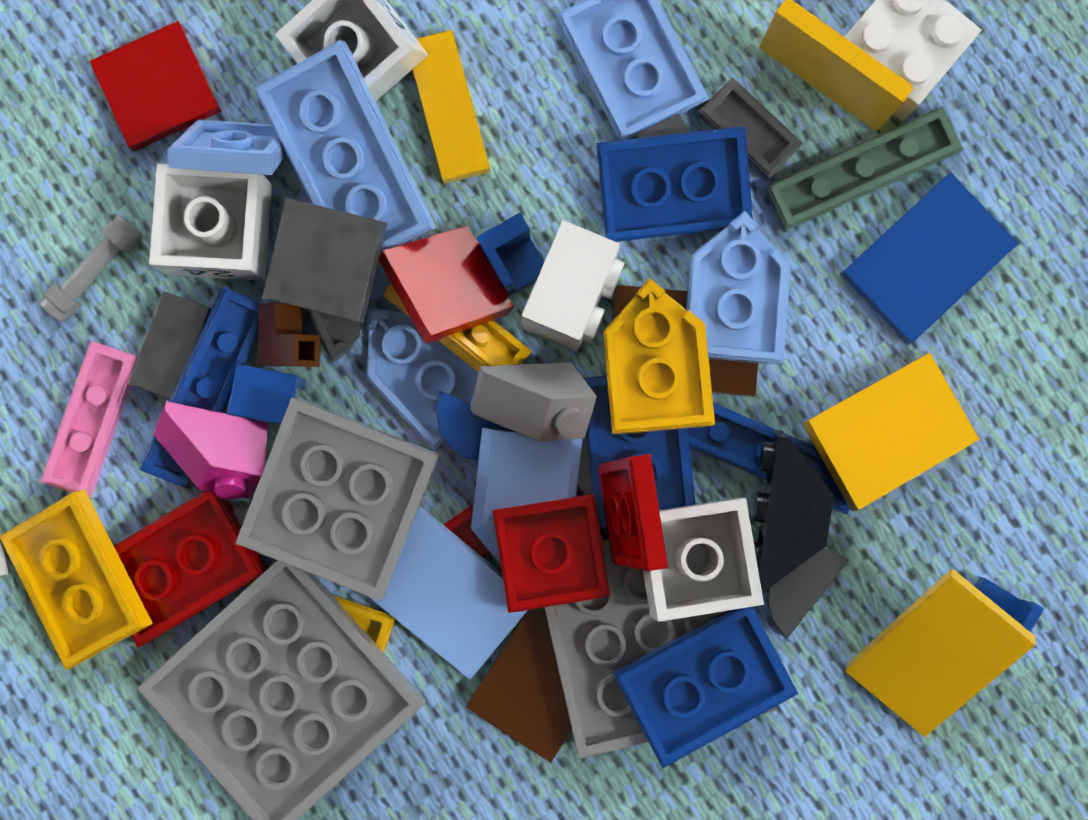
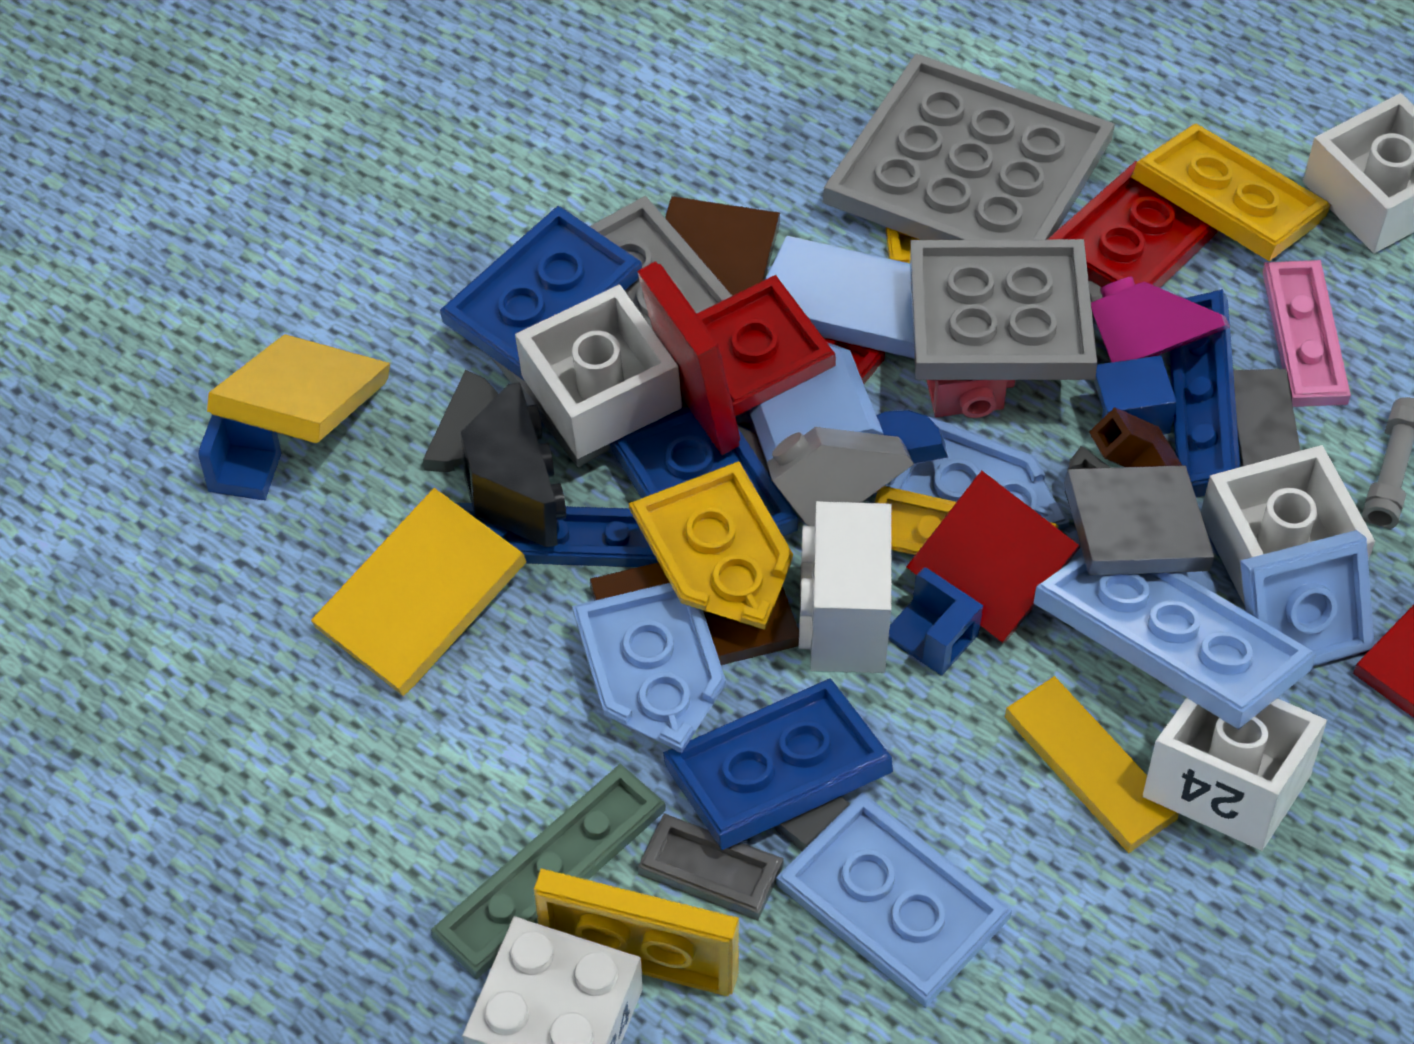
camera: 160 degrees right, 30 degrees down
(929, 258) = (431, 796): blue tile -> none

